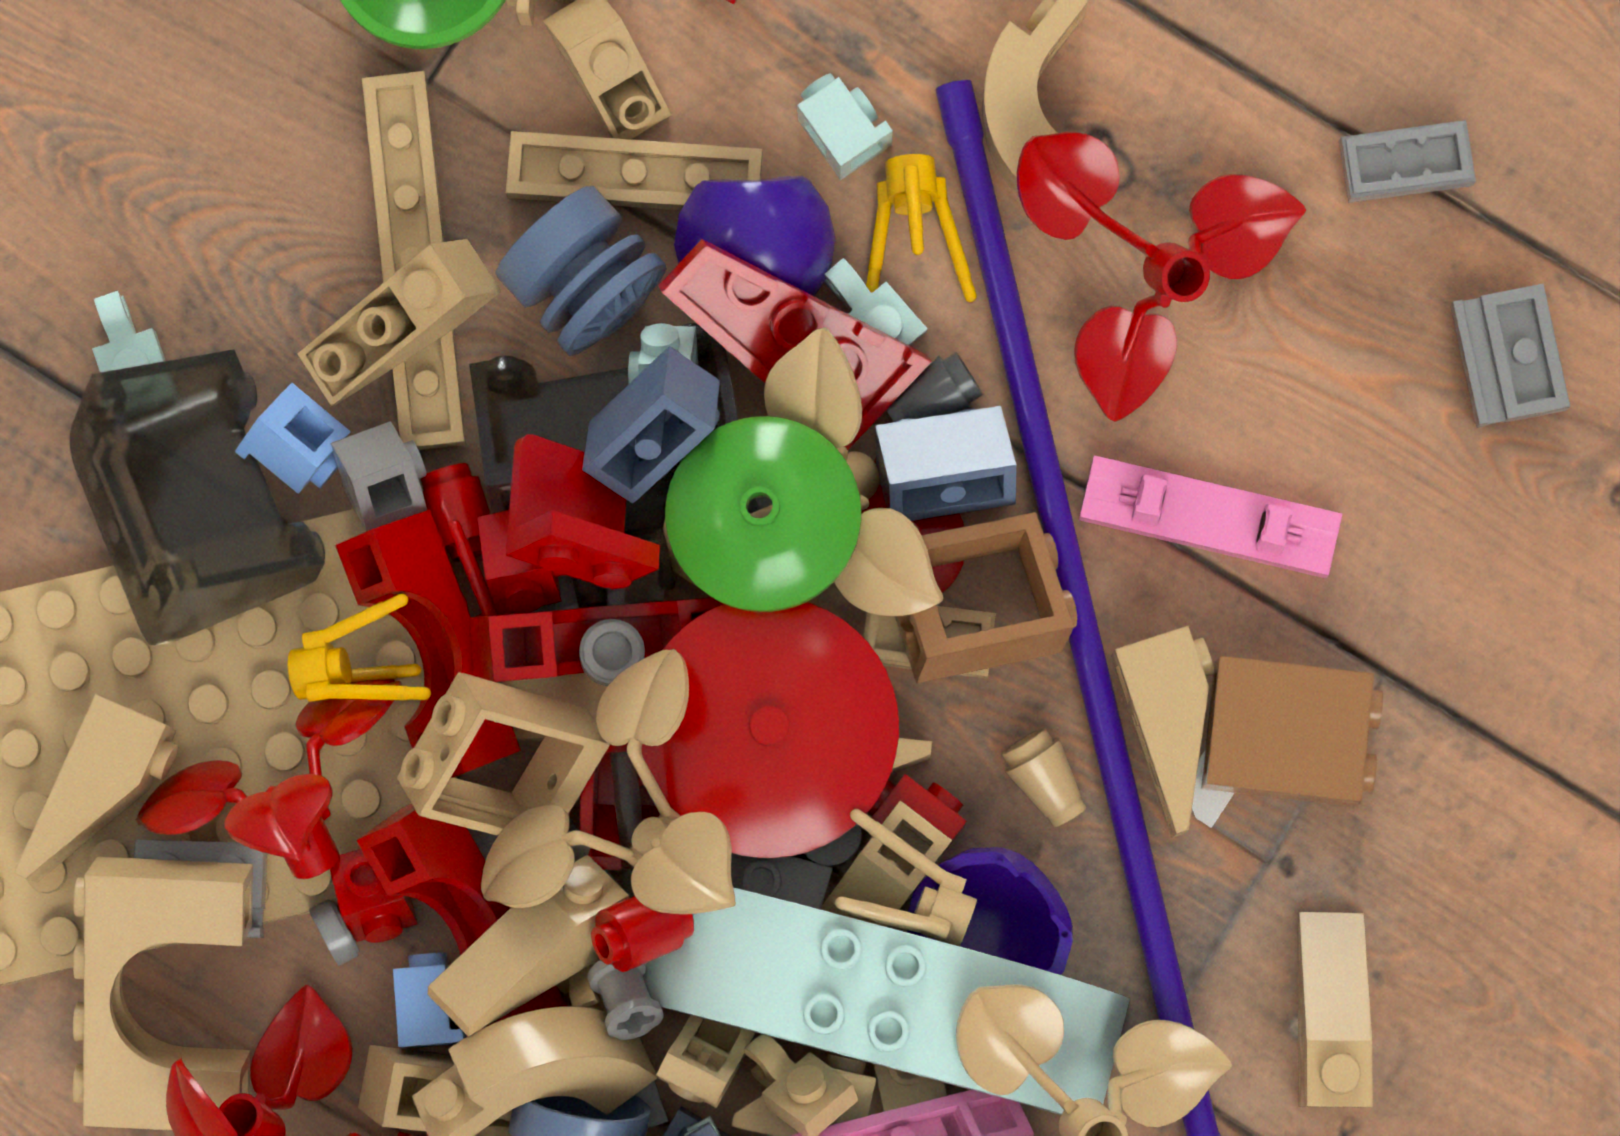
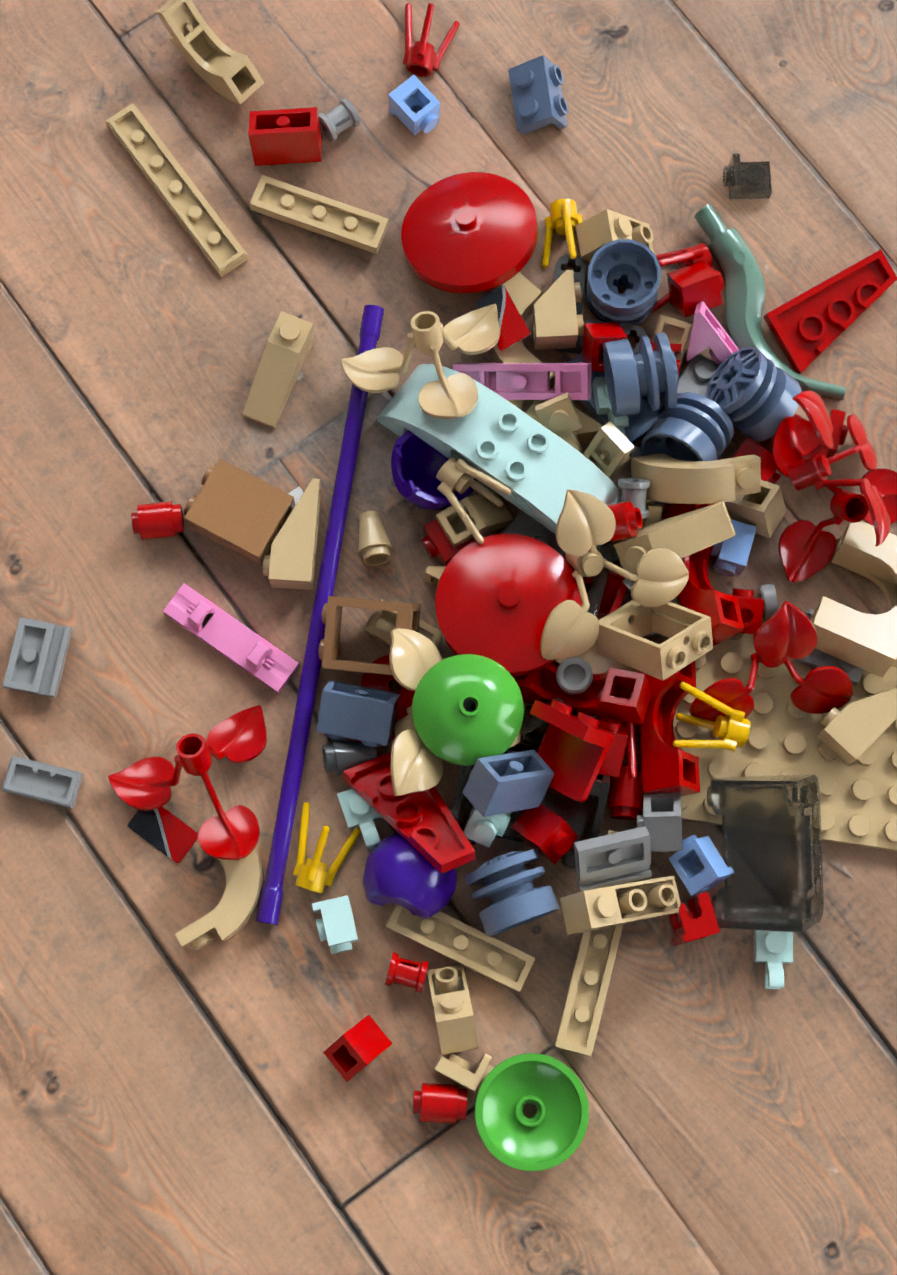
camera: 165 degrees left, 5 degrees down
(267, 331) = (696, 922): none -> red hinge
(438, 381) = (613, 859): none -> light grey plate
(563, 386) = (545, 832): none -> red brick
(700, 93) = (406, 973): none -> red bush
(1174, 163) = (164, 832): none -> sticker
(1419, 662) = (158, 520): none -> red brick

